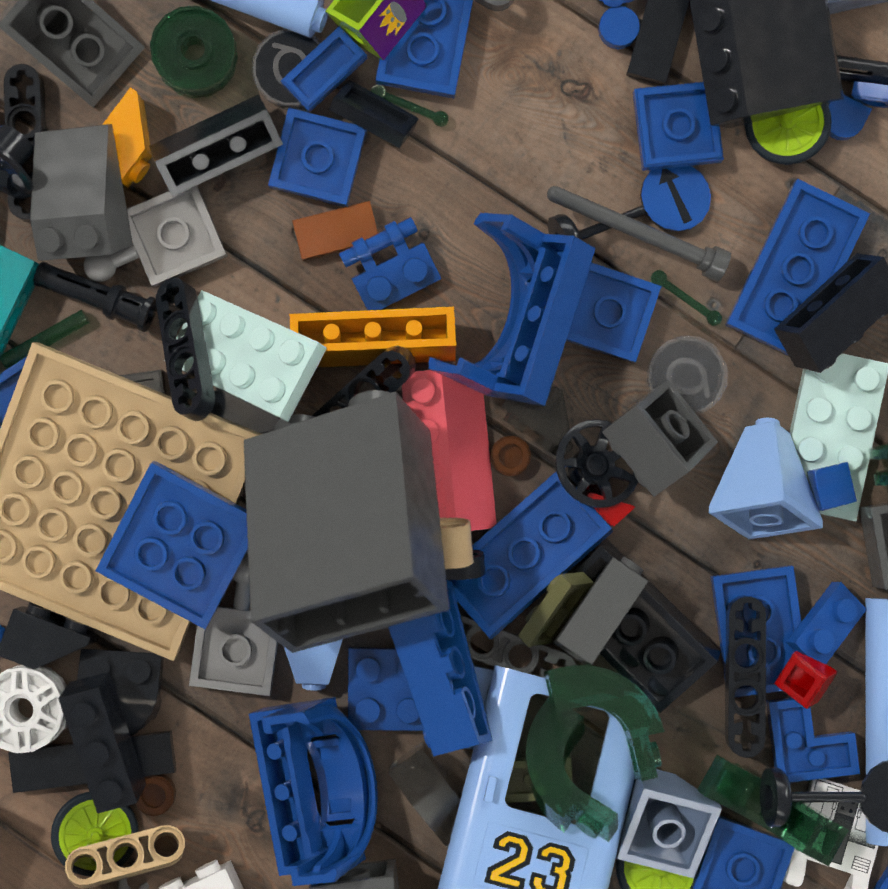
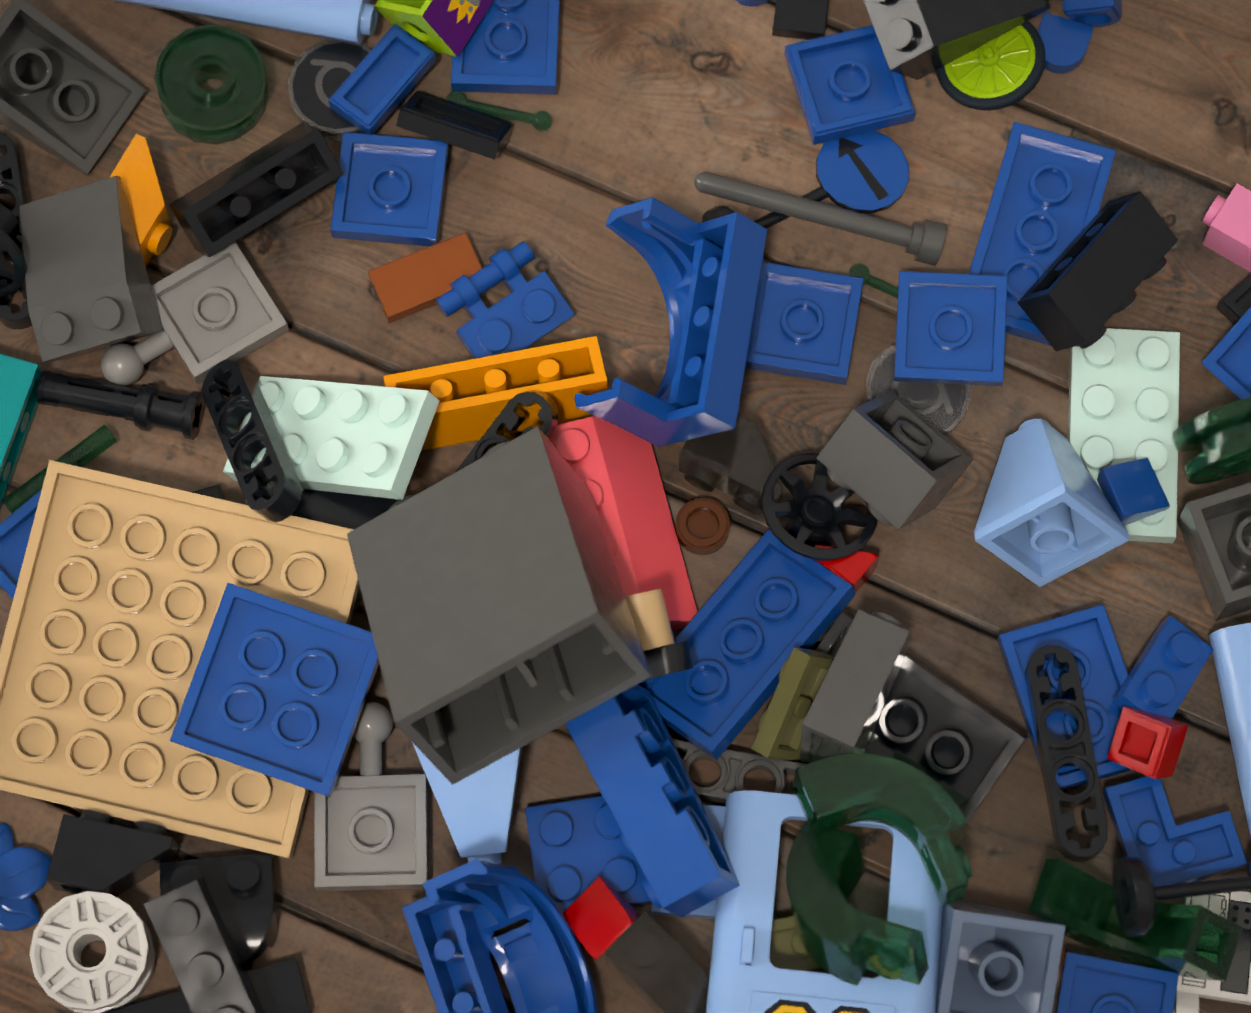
camera: 10 degrees left, 15 degrees down
(389, 743) = (600, 917): none -> red slope
(720, 339) = (950, 328): none -> blue plate

